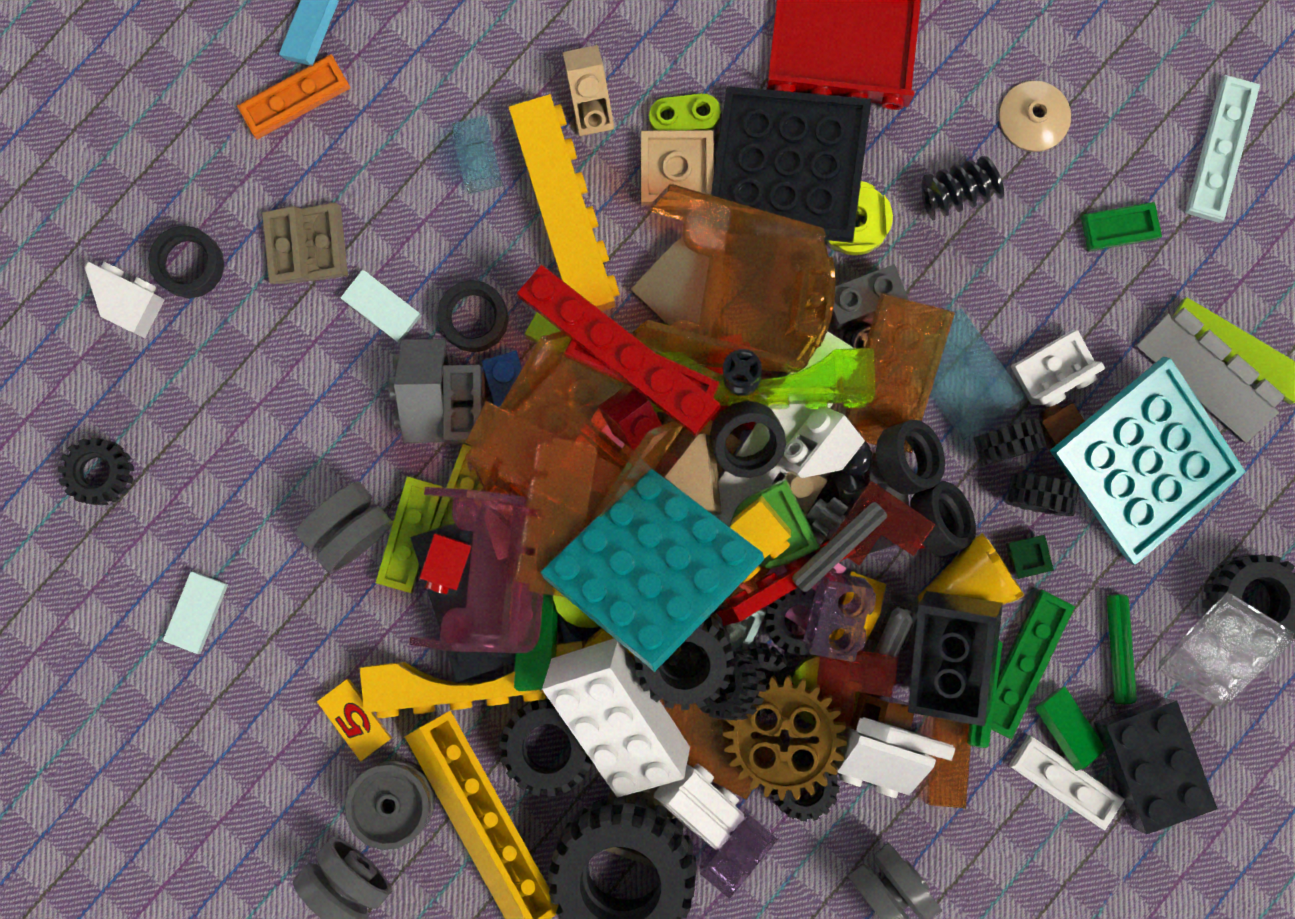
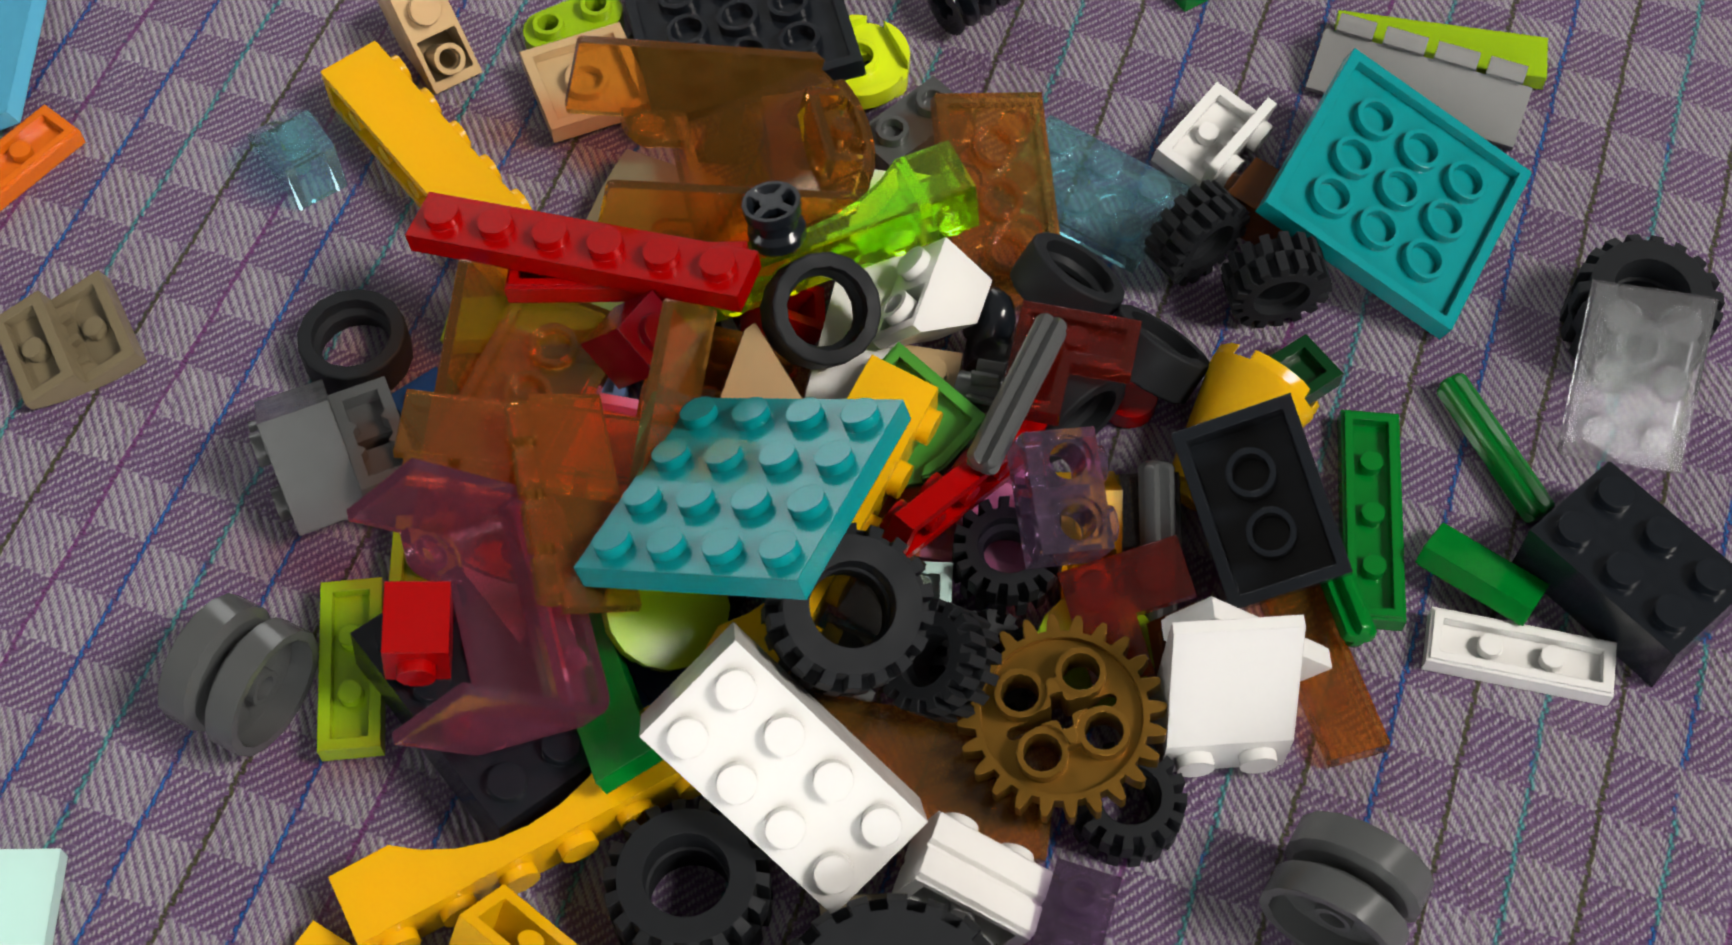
camera: 20 degrees left, 25 degrees down
(381, 306) = (209, 381): light aqua tile -> none

